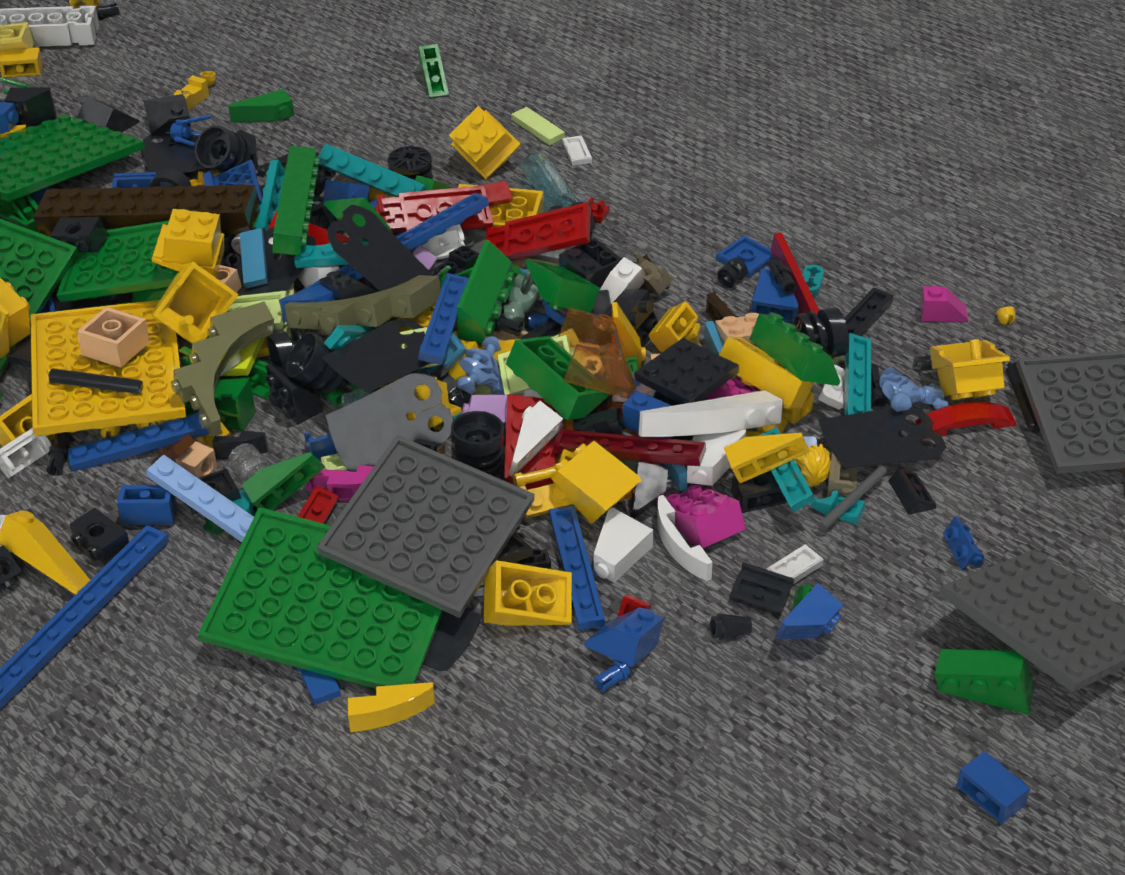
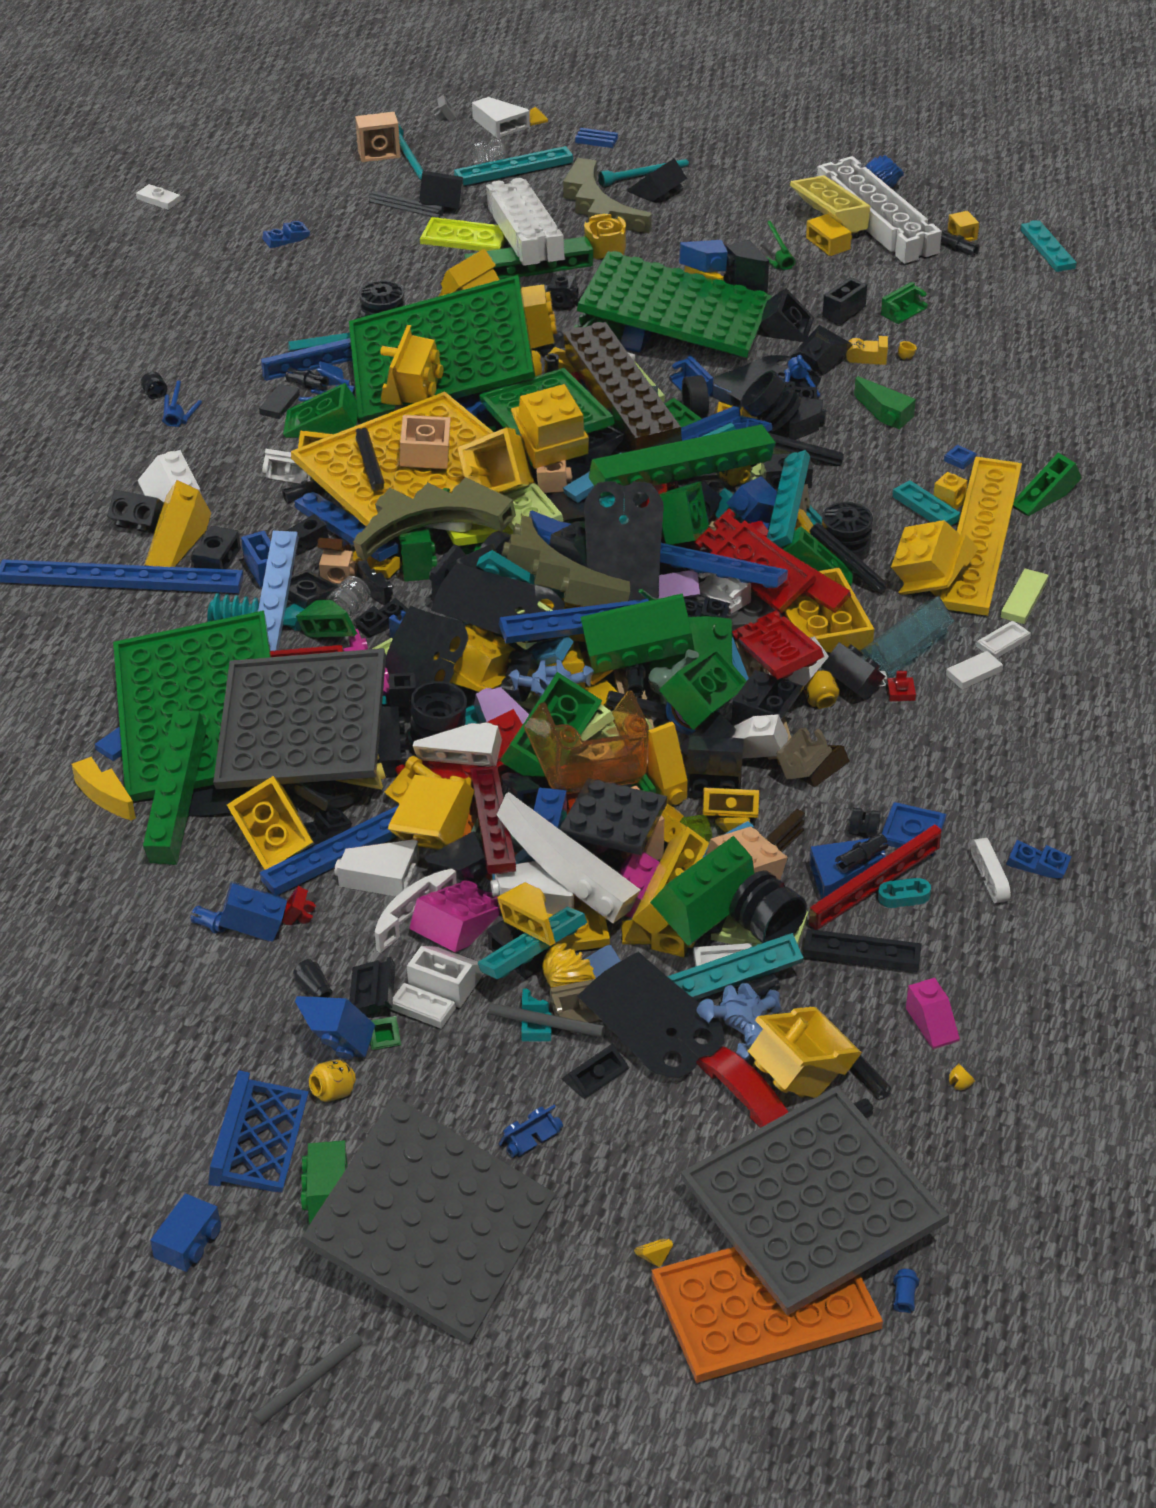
camera: 65 degrees right, 0 degrees up
(82, 232) = (550, 365): black brick -> none
(121, 80) = (844, 300): none -> black brick
(132, 471) = (309, 532): none -> black leg
(150, 61) = (903, 303): none -> green hinge
(204, 545) = (225, 609): none -> teal piece
(285, 447) = (377, 621): none -> black slope
(356, 99) = (960, 457): none -> blue tile
(401, 114) = (951, 490): none -> yellow brick
(401, 131) = (925, 503): none -> teal plate
(442, 642) = (174, 787): none -> green brick
(443, 111) = (986, 523): none -> yellow plate
(450, 180) = (848, 558): none -> black axle
(599, 173) = (974, 670): none -> white tile
(772, 538) = (443, 973): none -> white slope
(816, 212) = (1047, 863): none -> blue slope
(821, 228) = (990, 869): none -> white beam
(858, 644) = (332, 1080): none -> yellow head
(888, 724) = (235, 1121): none -> blue fence
(1109, 513) = (655, 1251): none -> yellow slope

